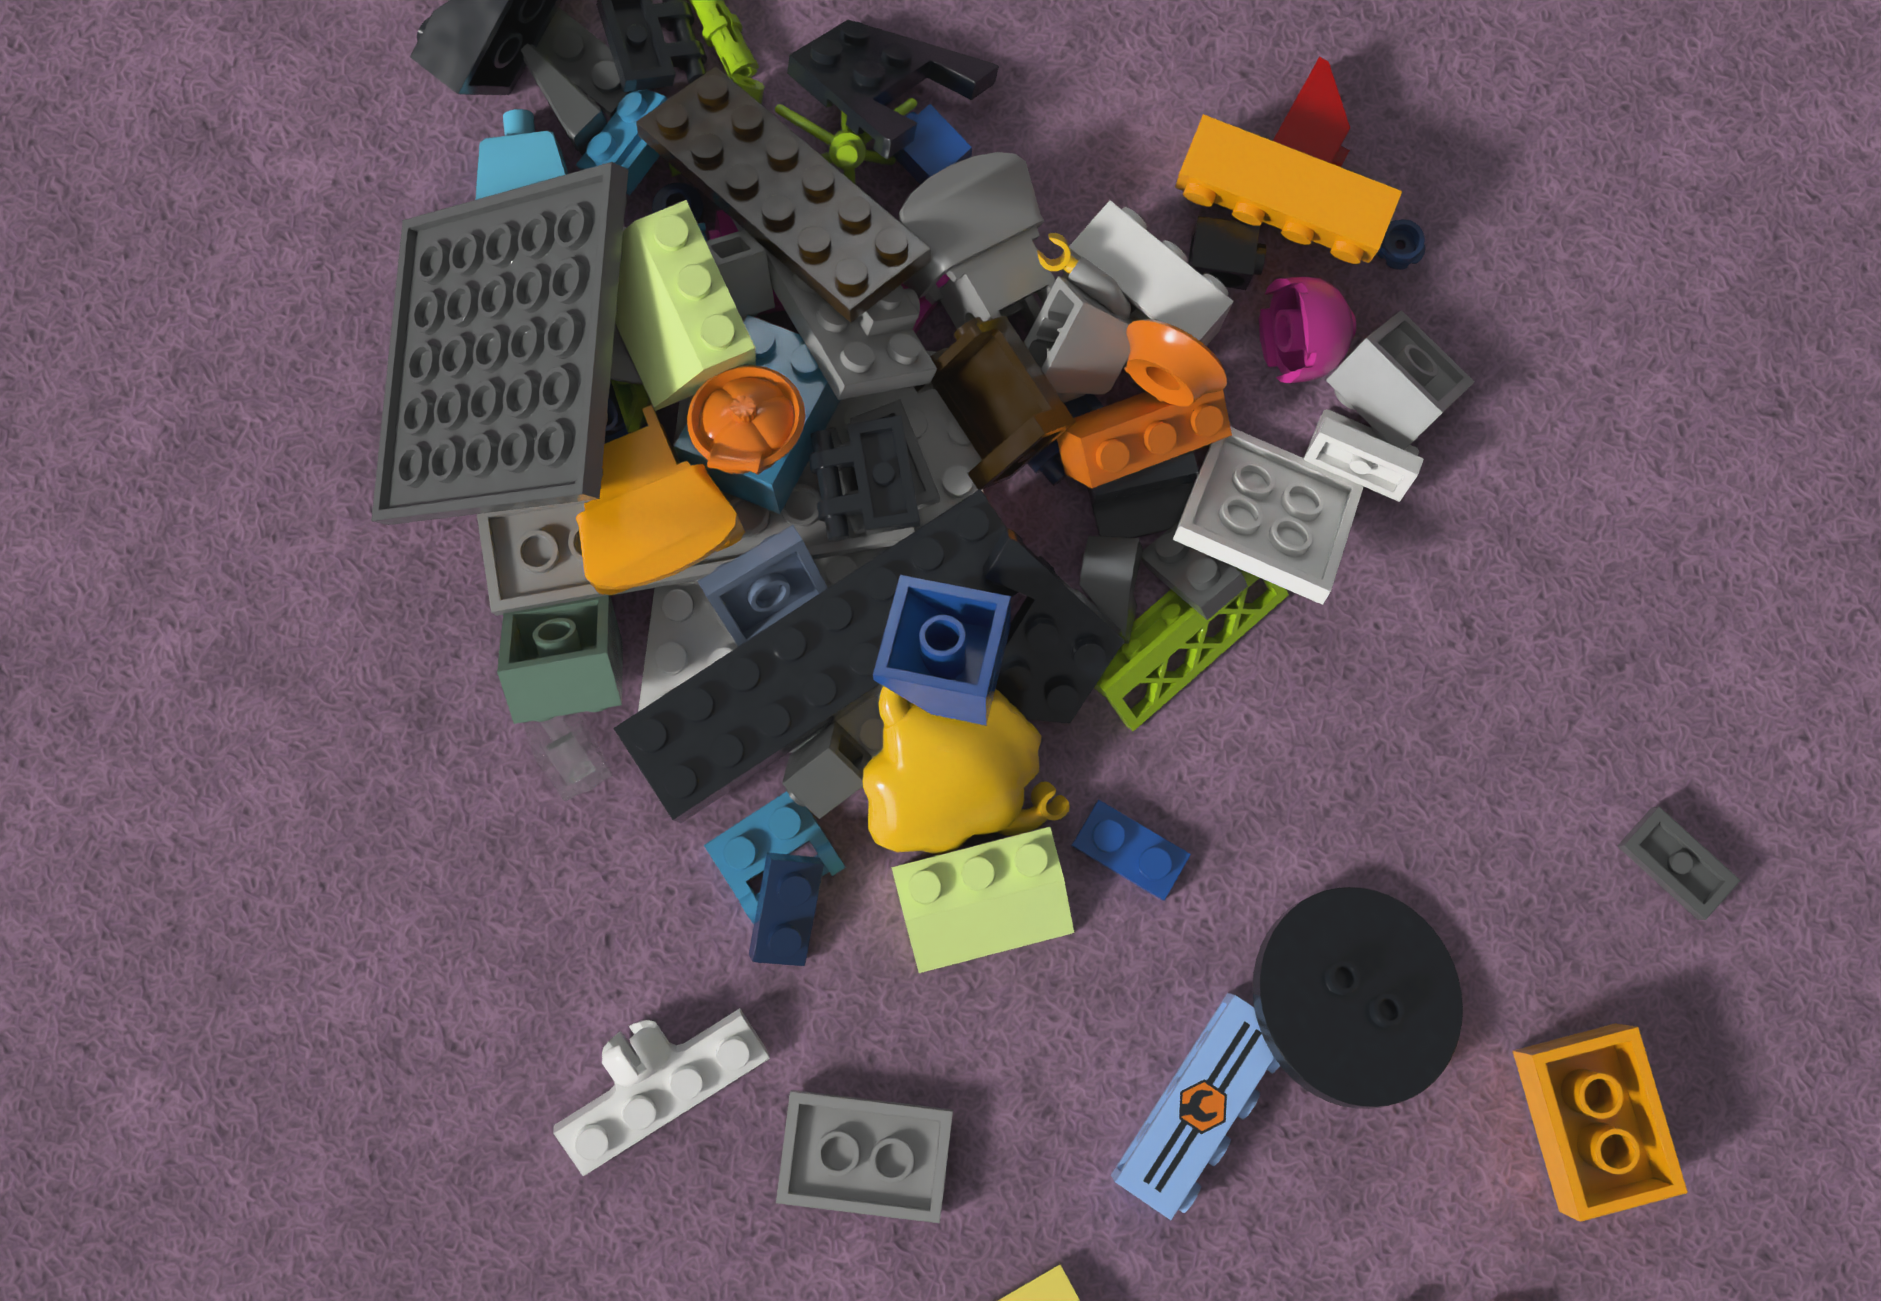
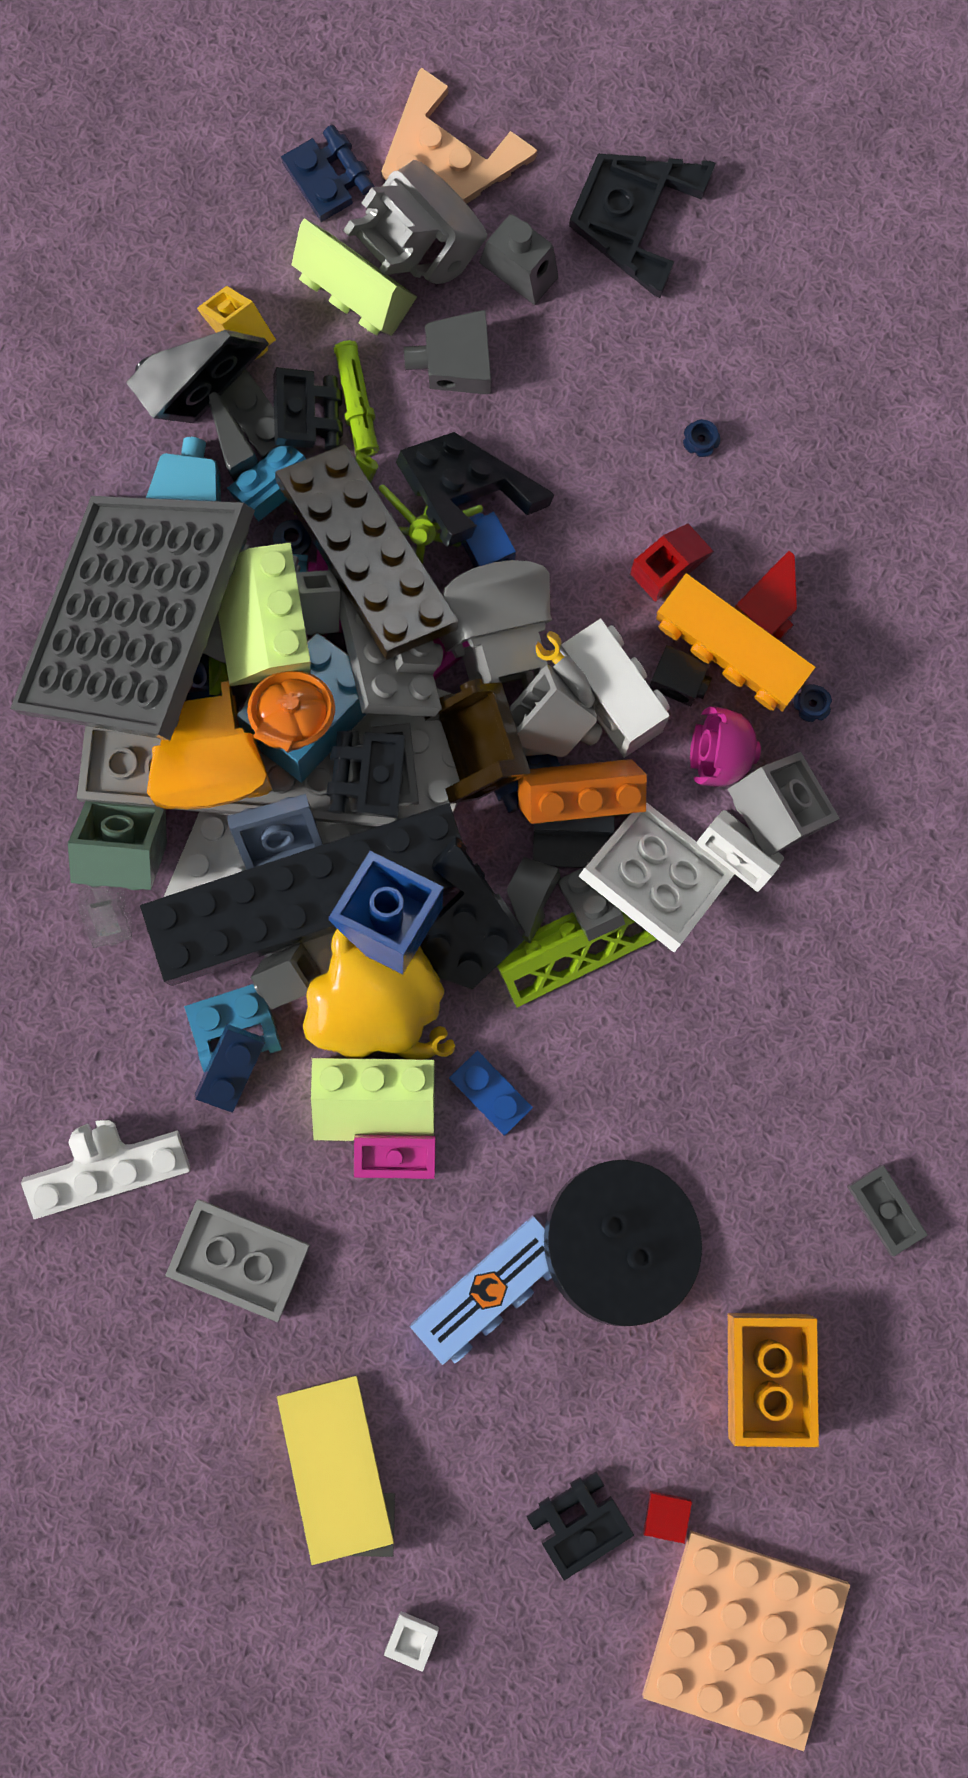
camera: 15 degrees right, 0 degrees up
(1031, 965) = (394, 1156): none -> dark pink plate
(1169, 112) = (669, 560): none -> red slope
(1172, 363) = (610, 749): orange piece -> none

